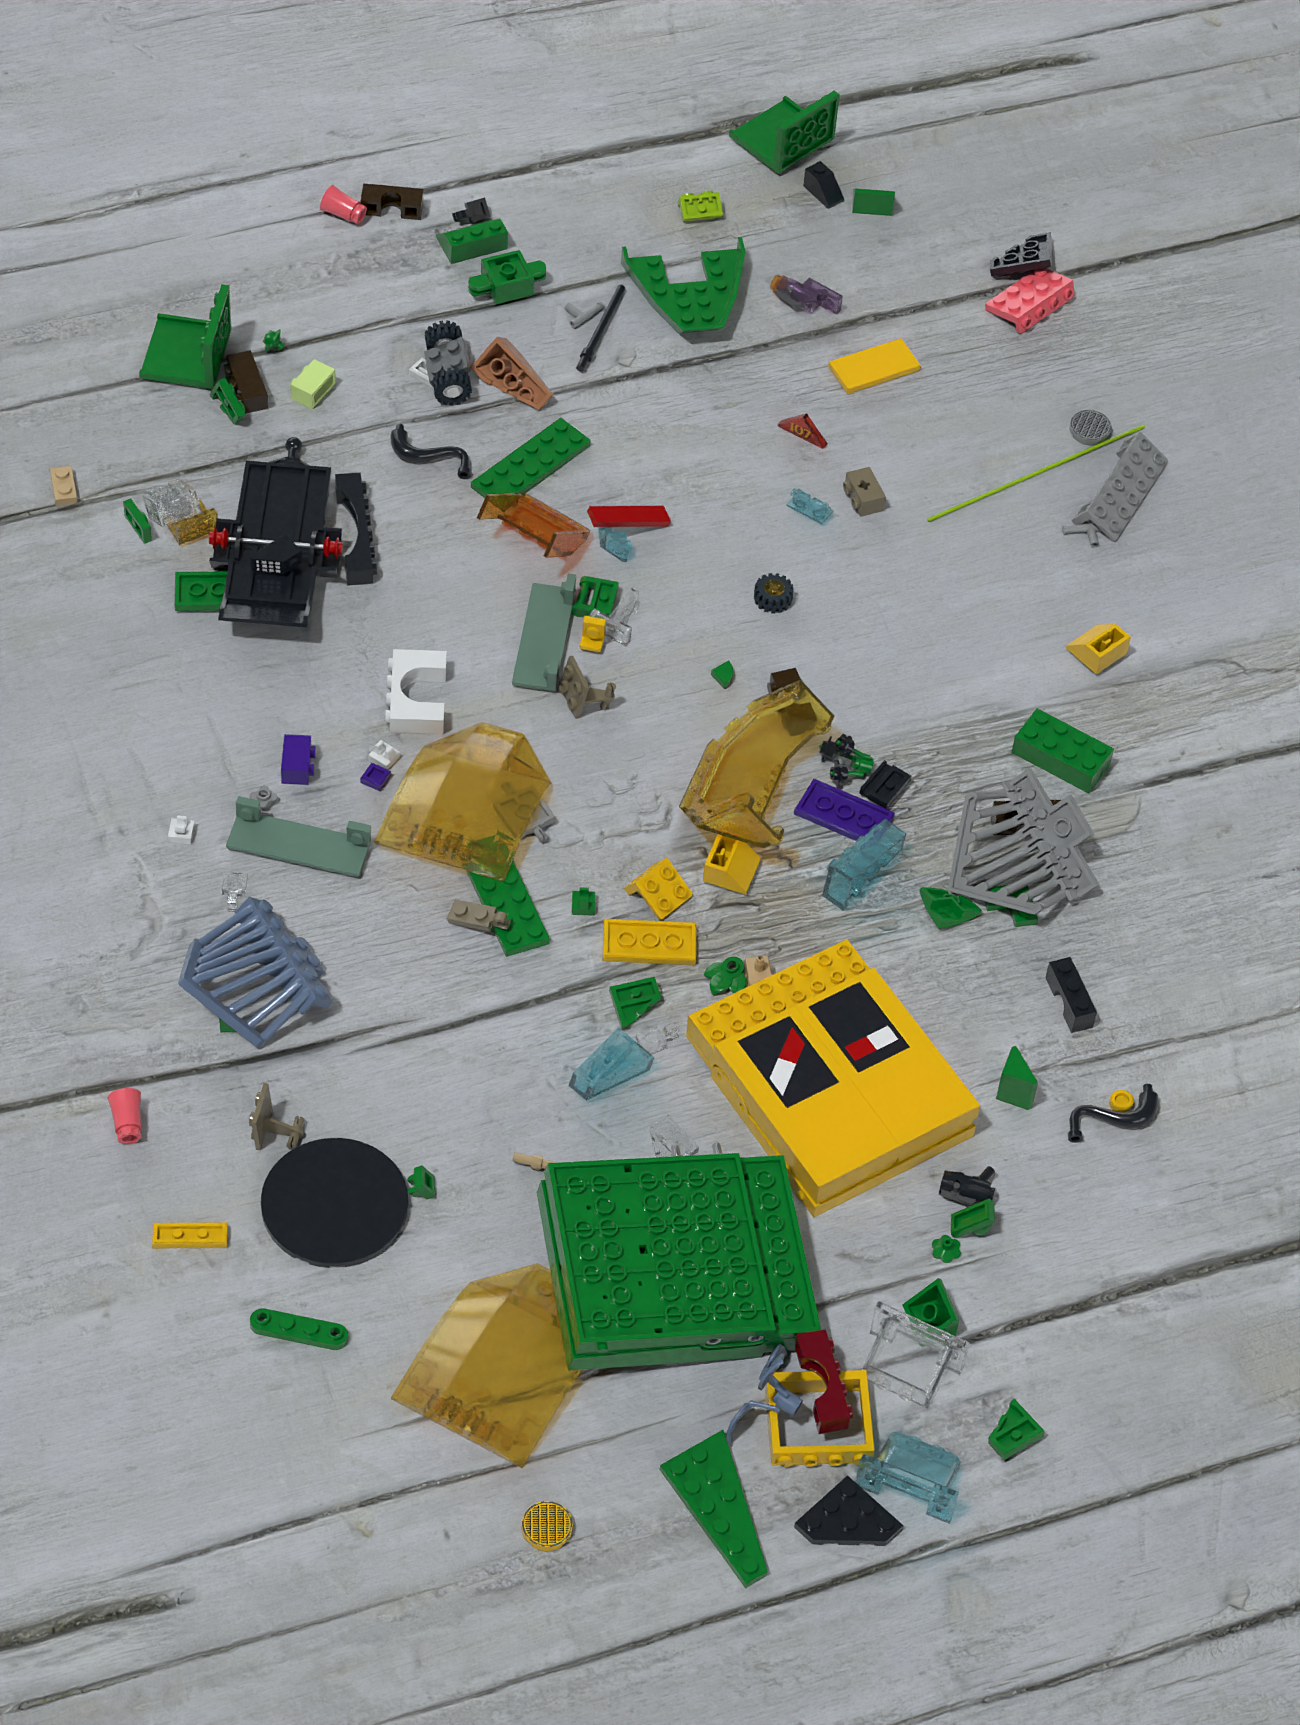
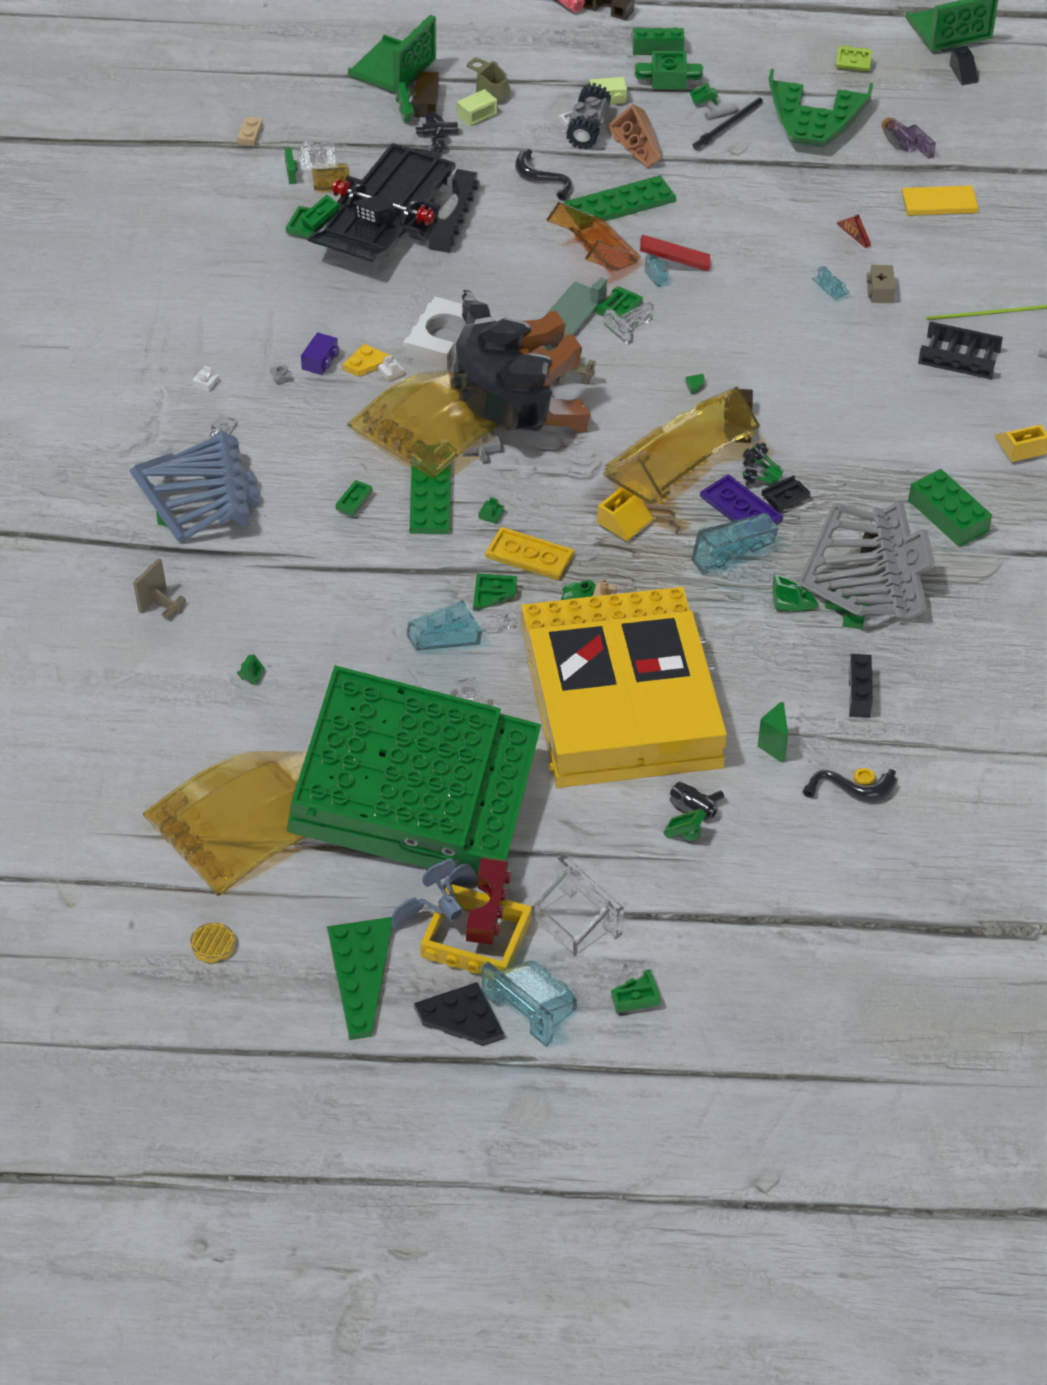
camera: 25 degrees right, 5 degrees down
(126, 1114) = (51, 556): coral plant -> none
(190, 1235) = (53, 655): yellow tile -> none
(210, 576) = (320, 212): none -> green plate
(272, 340) = (462, 72): green plant -> none
(279, 423) = (437, 127): none -> black plant
(297, 841) = (290, 410): sand green bracket -> none
(298, 1329) = (98, 744): green plate -> none
(316, 343) = (491, 79): none -> olive piece
(334, 1202) = (176, 664): black tile -> none
(350, 752) = (364, 360): none -> yellow wing
(375, 776) = (376, 382): dark purple tile -> none
(426, 932) = (354, 498): none -> green plate
(455, 313) = (616, 88): none -> yellowish green brick
(474, 210) = (669, 20): black plate -> none
(476, 916) = (398, 496): dark tan plate -> none
(521, 732) = (508, 371): none -> black animal
(558, 298) = (703, 94): none -> green bracket
(593, 634) = (602, 326): yellow bracket -> none
(660, 888) = (558, 517): yellow bracket -> none
(773, 593) = (766, 336): black wheel -> none
(873, 202) = (1000, 85): green slope -> none
(934, 1307) = (615, 880): green slope -> none
(946, 1249) = (654, 843): green plant -> none
(984, 567) = (959, 362): none -> black fence

